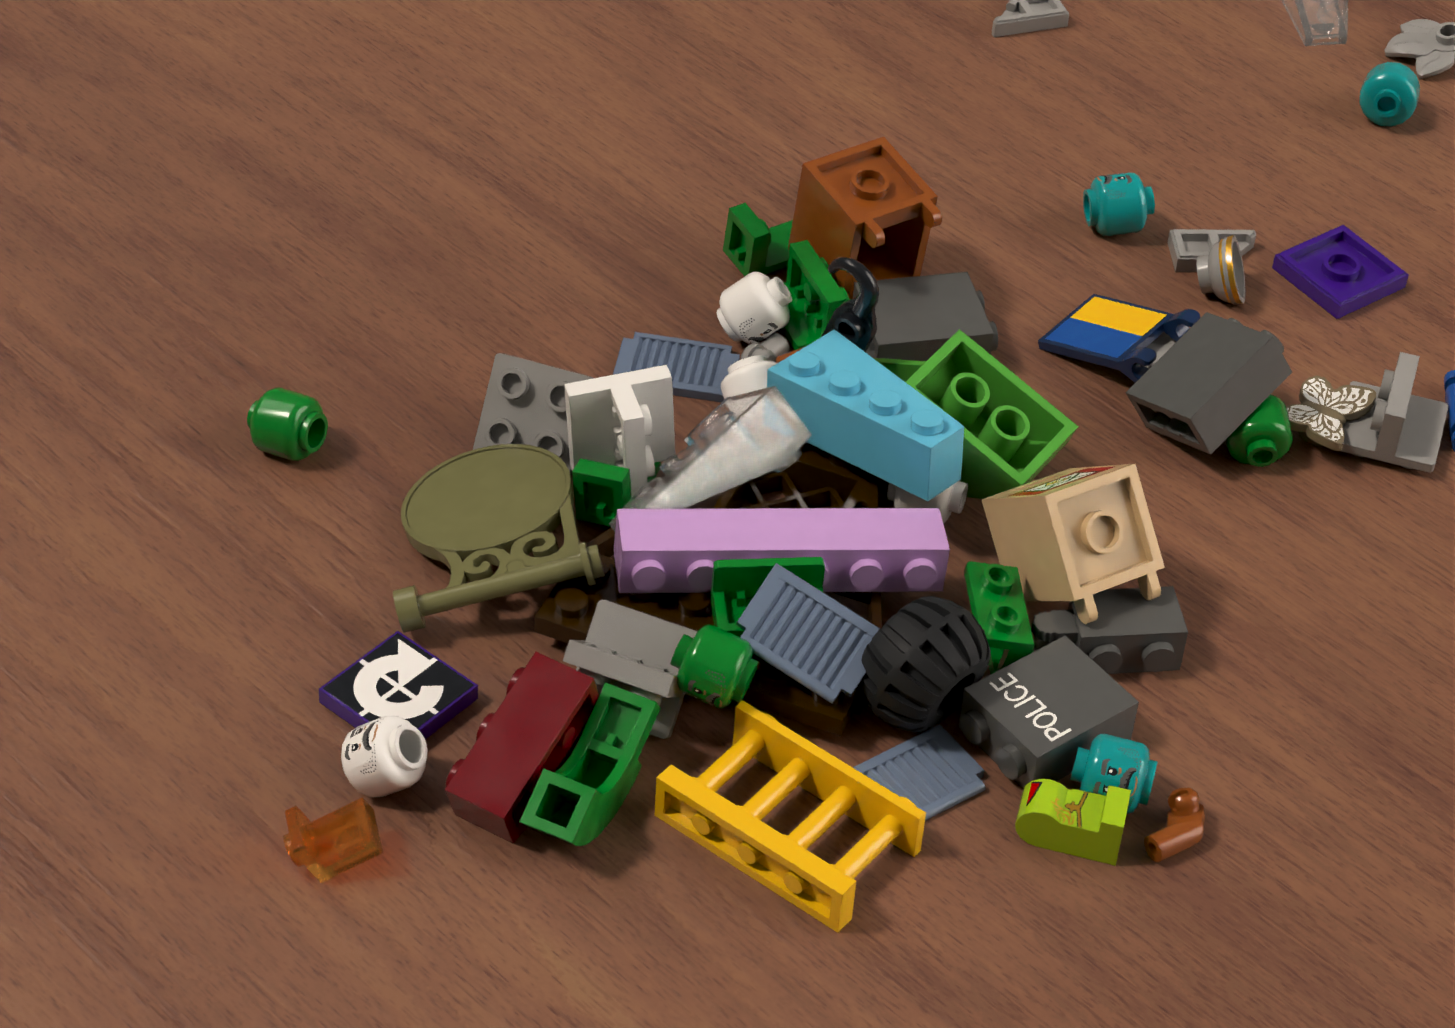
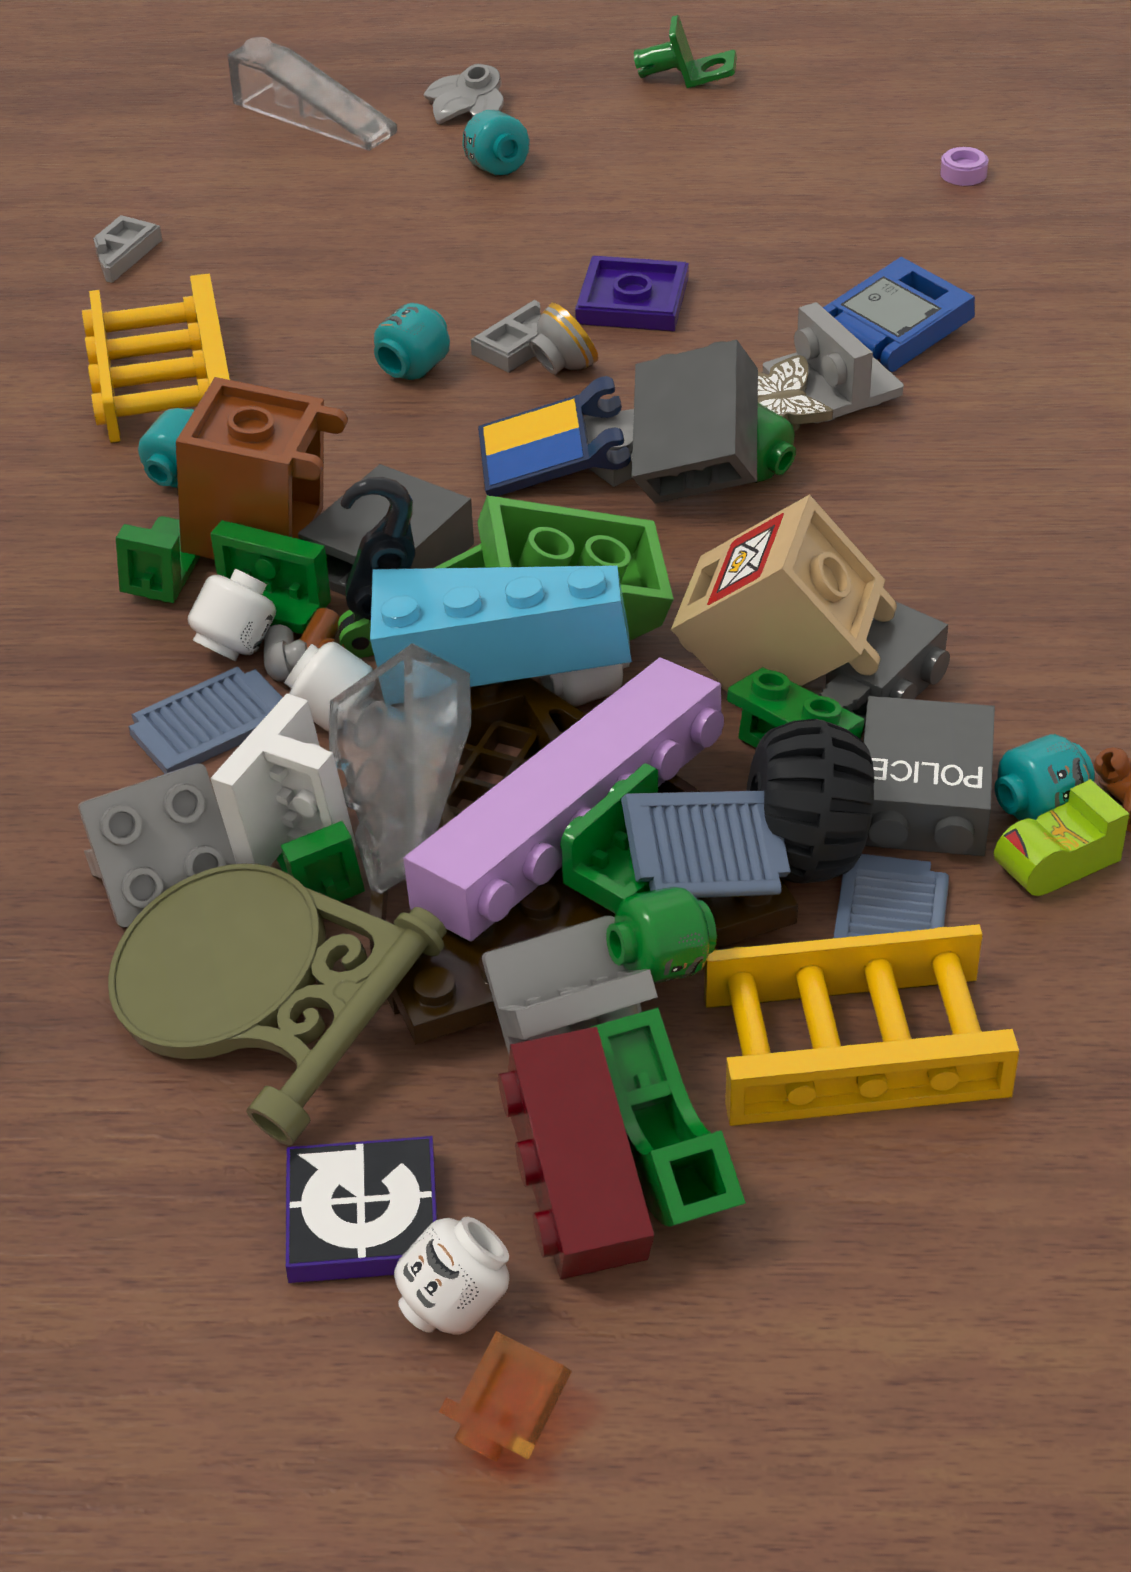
camera: 40 degrees left, 0 degrees up
(964, 137) = (201, 337): none -> yellow fence

